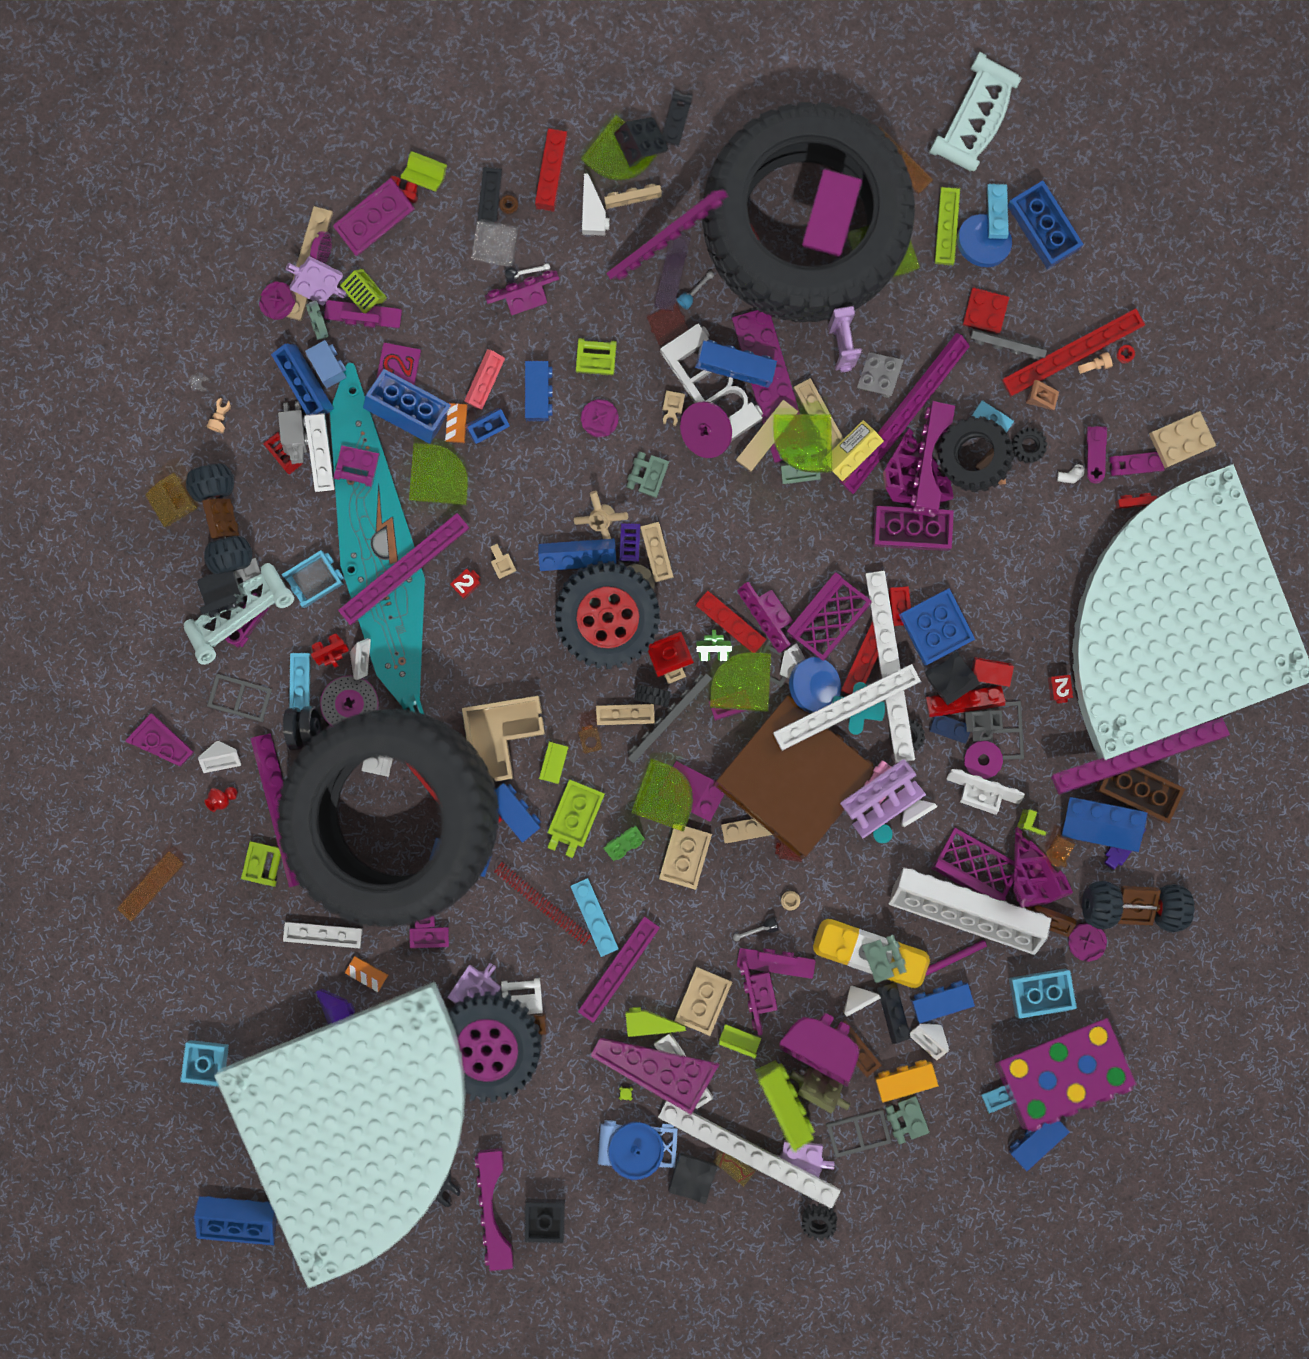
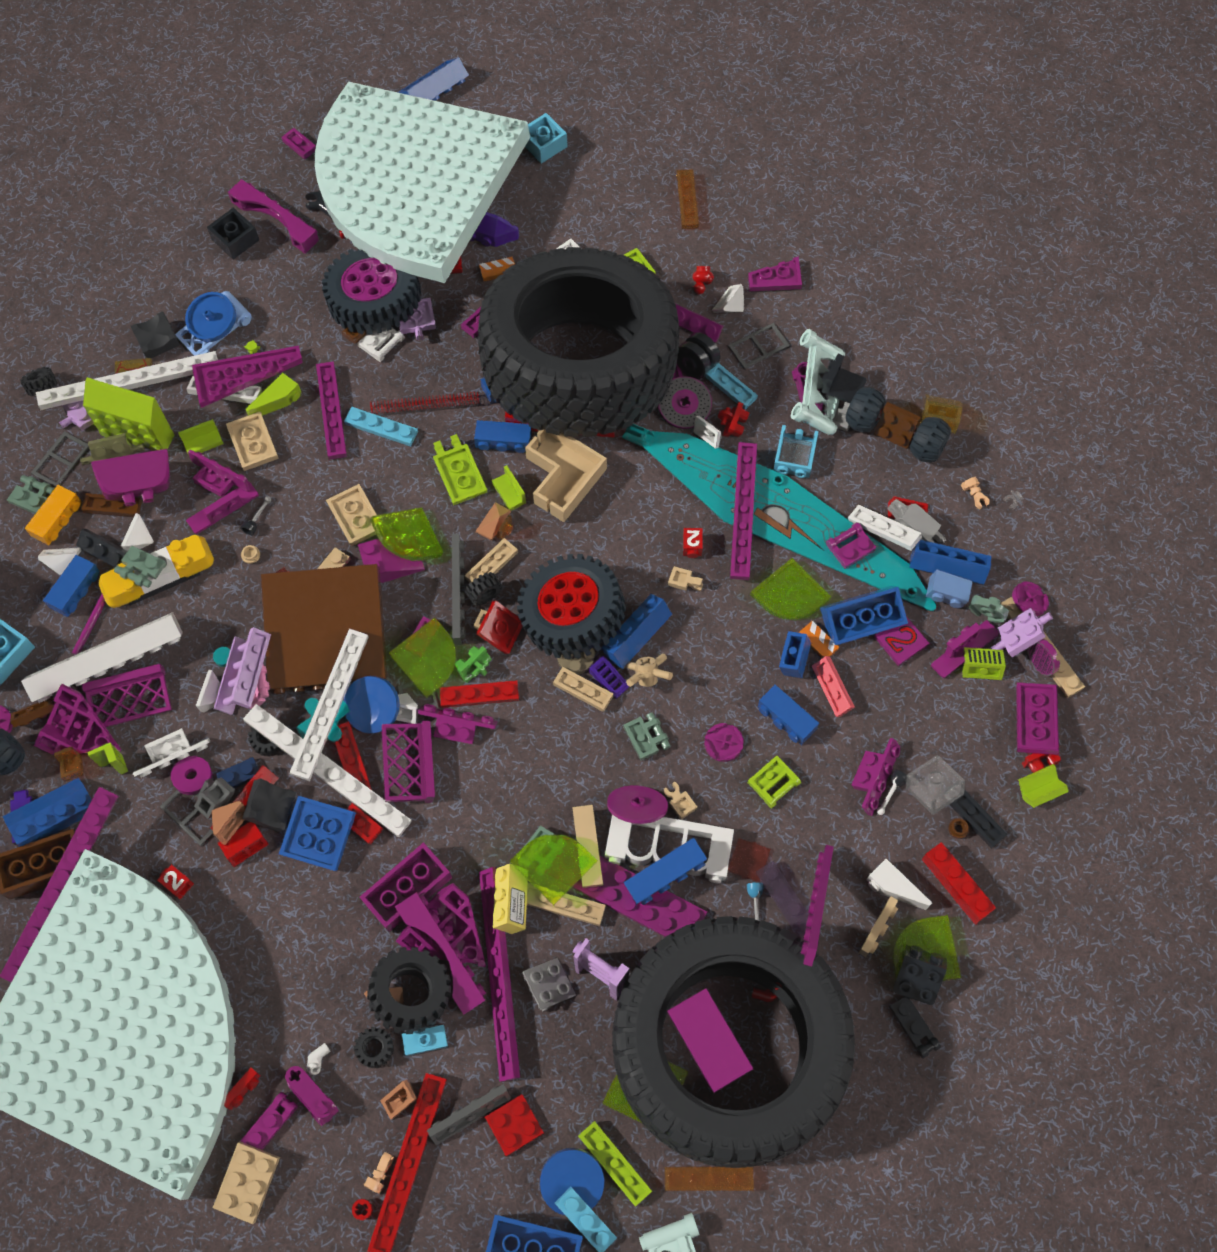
camera: 140 degrees right, 20 degrees down
(405, 1269) = (299, 143): none -> magenta plate
(589, 749) = (493, 521): none -> nougat slope
(630, 840) = (409, 480): bright green hinge -> none
(991, 693) = (227, 820): none -> nougat slope

